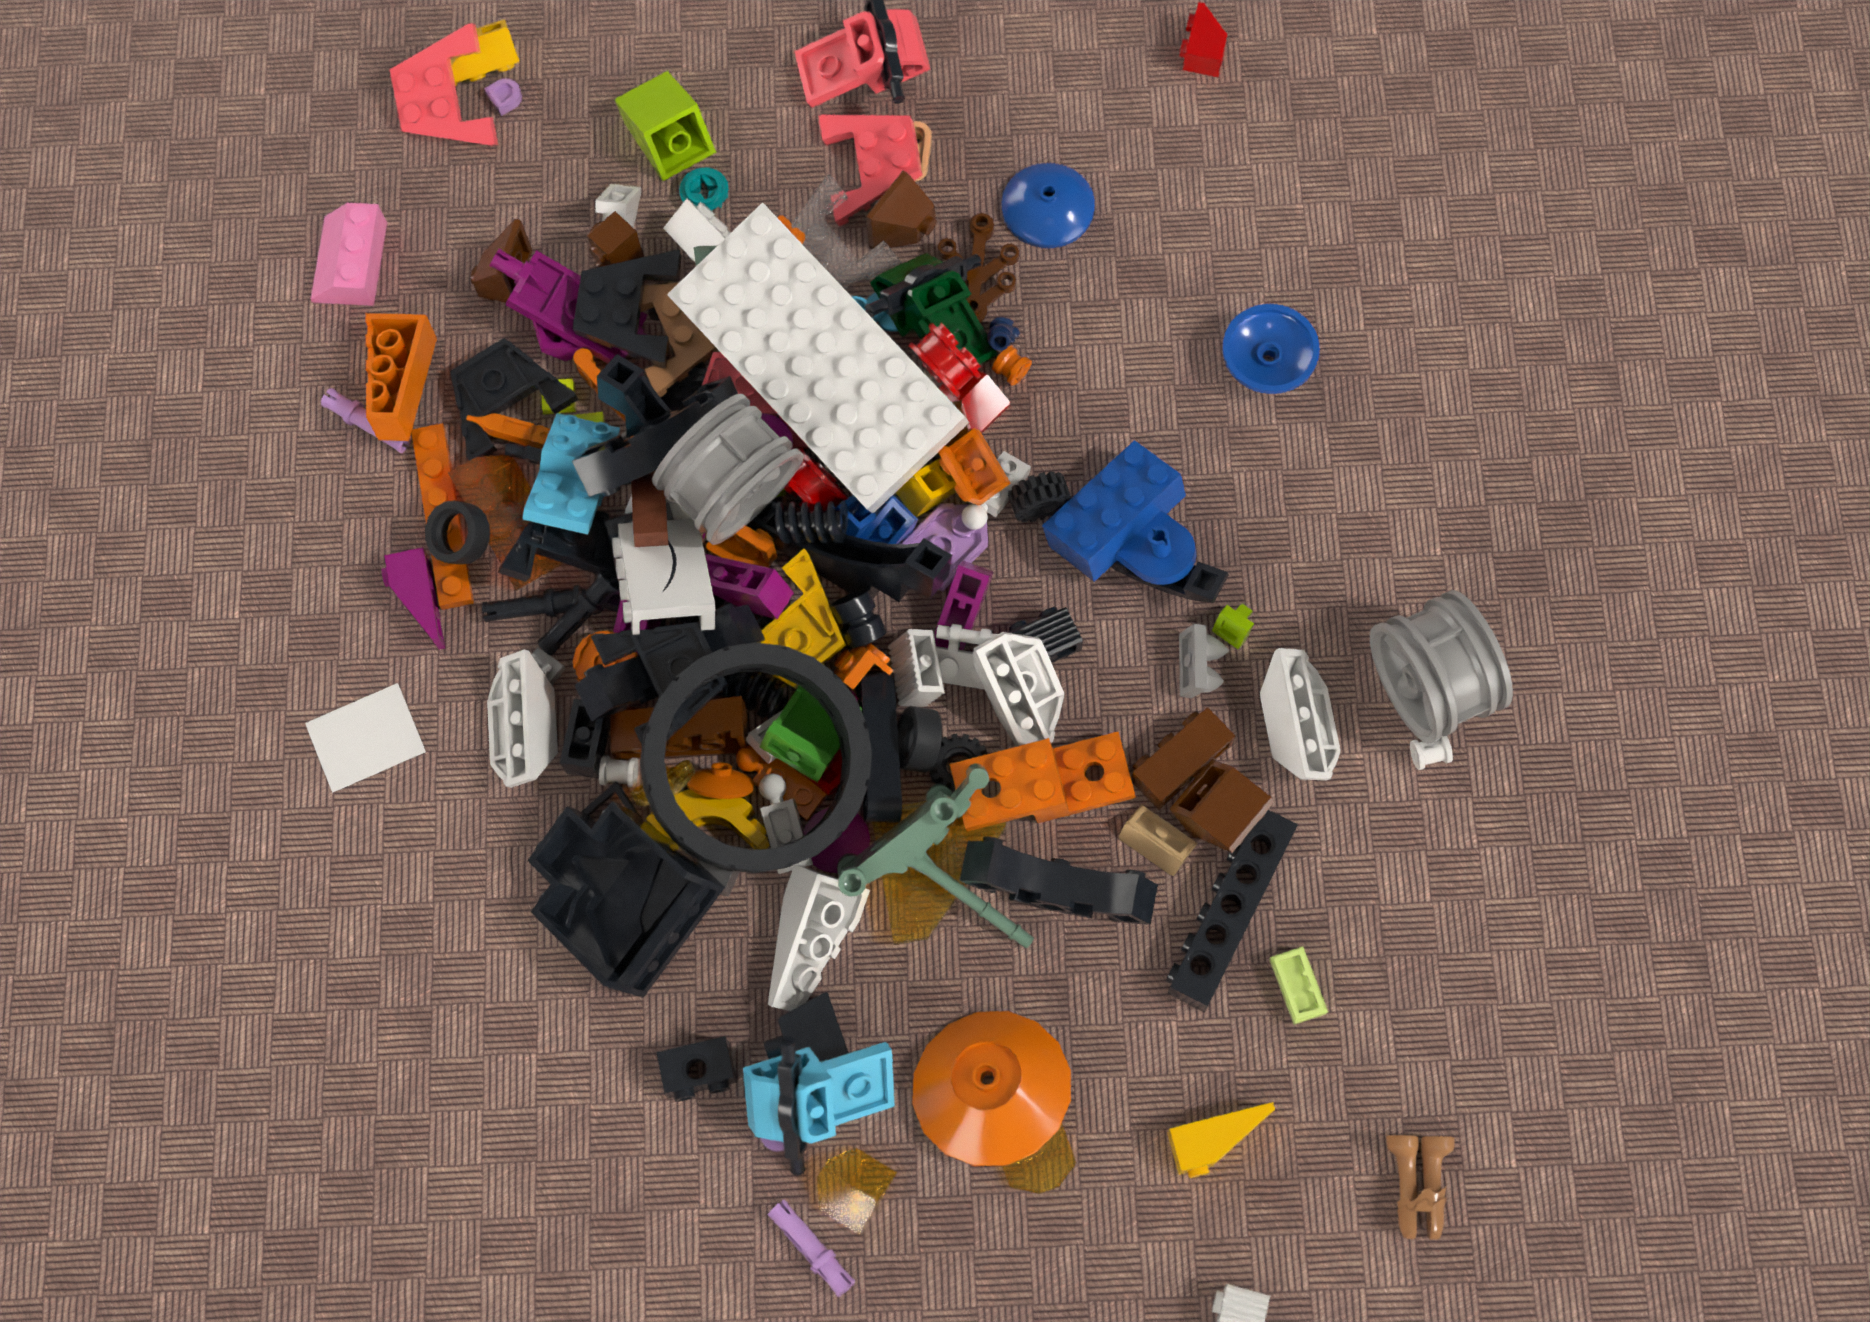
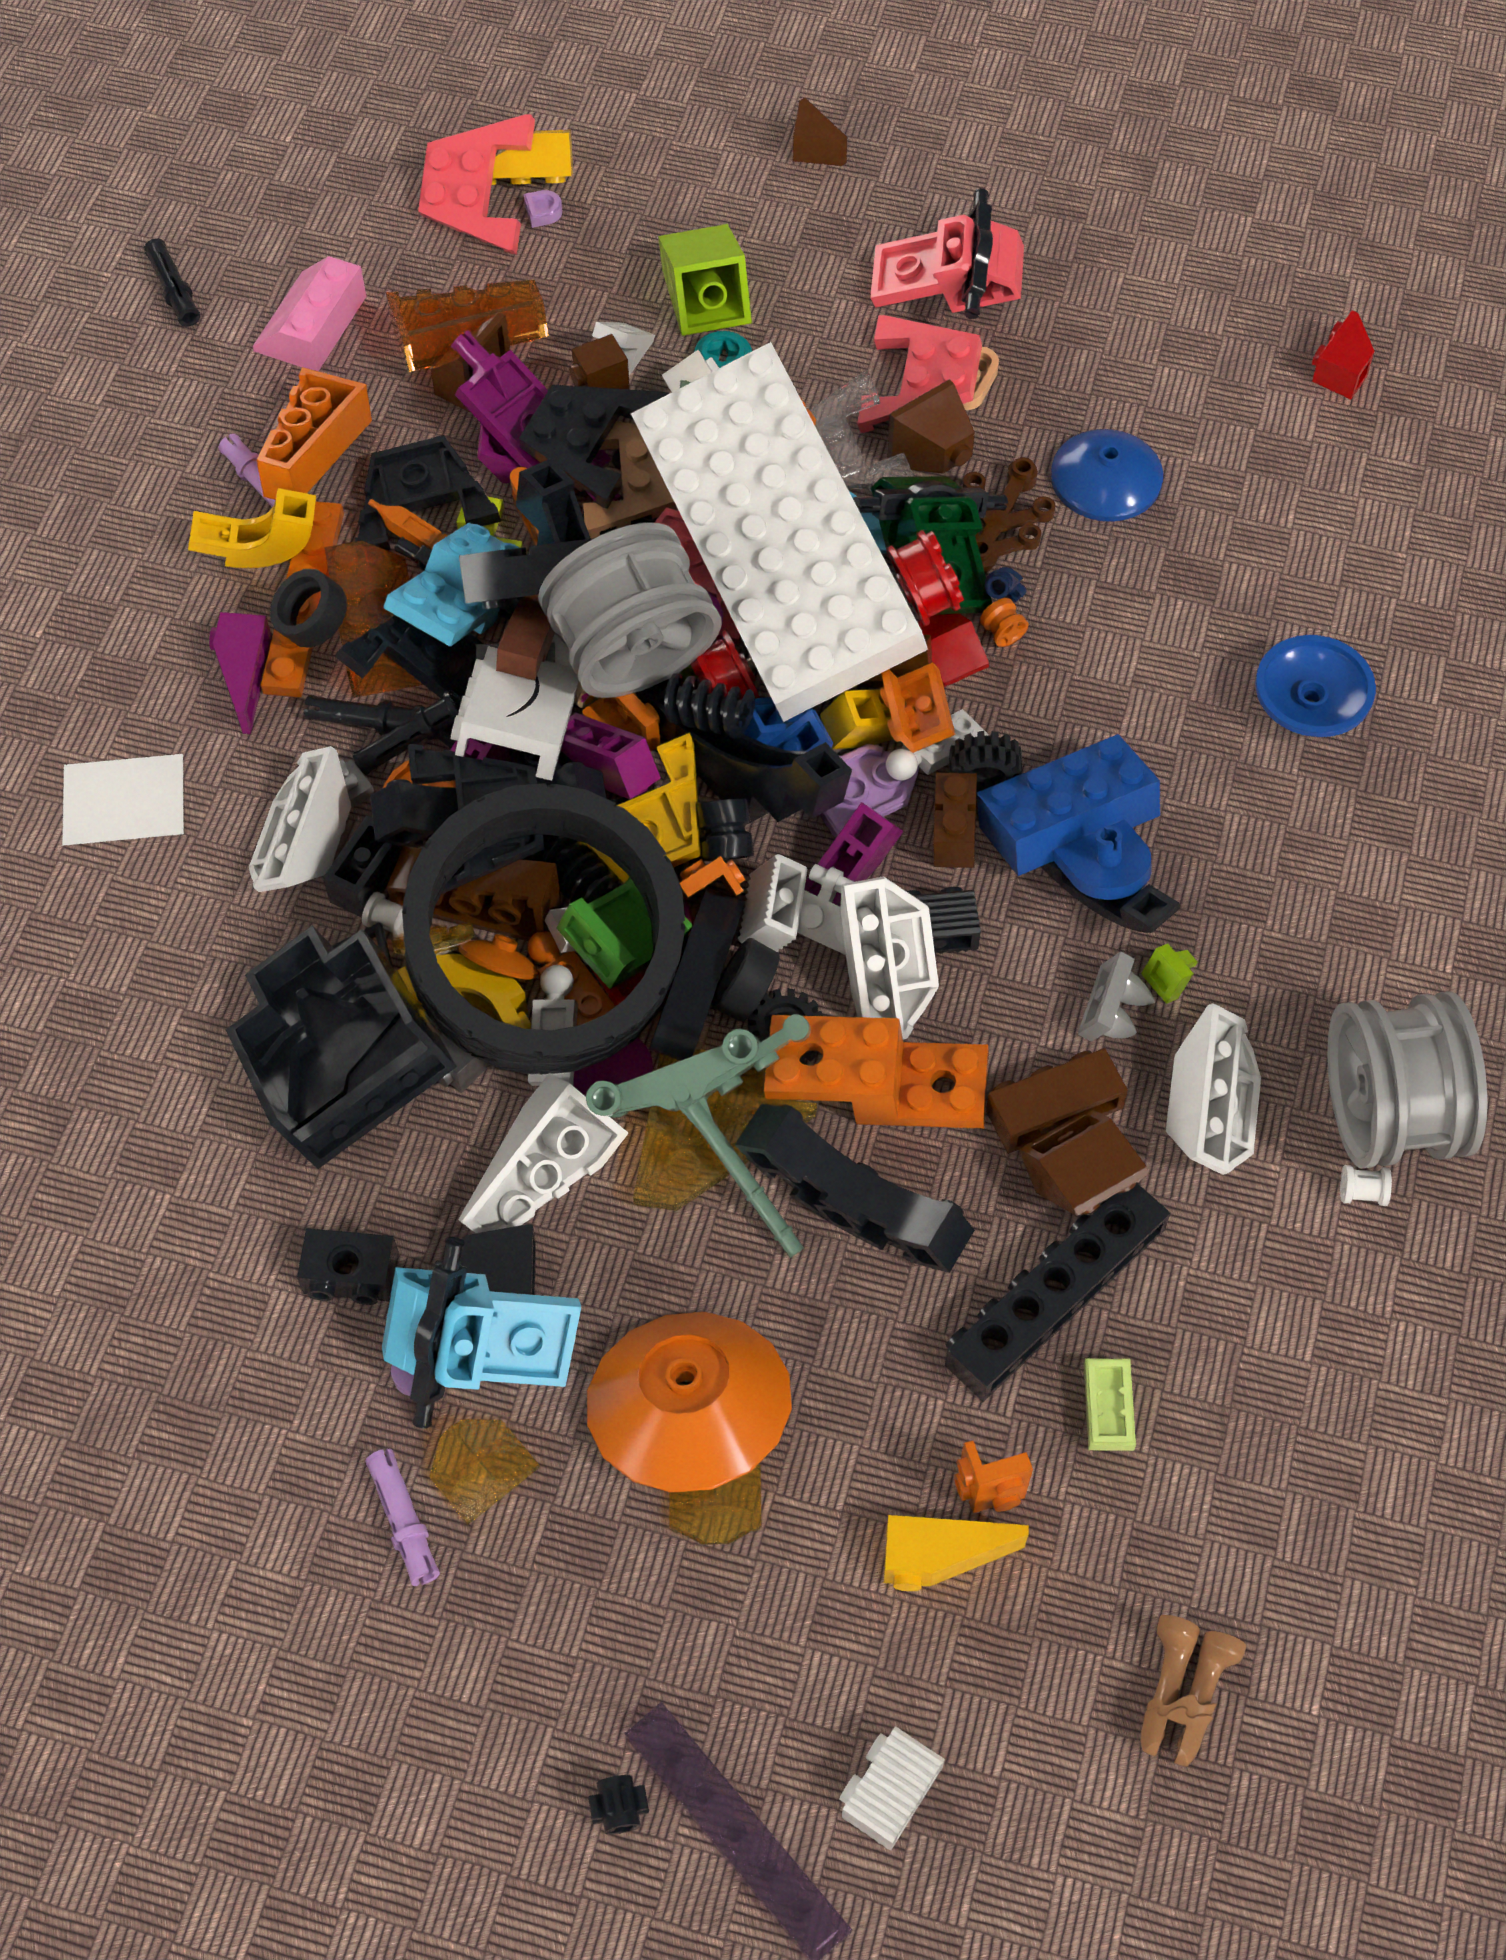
camera: 15 degrees right, 10 degrees down
(227, 269) = (176, 291): none -> black pin
(388, 479) = (257, 540): none -> yellow arch
(463, 234) = (432, 322): none -> clear orange wedge
(1034, 556) = (955, 820): none -> reddish brown piece
(1157, 840) = (993, 1185): tan slope -> none
(1242, 1079) = (992, 1484): none -> orange bracket

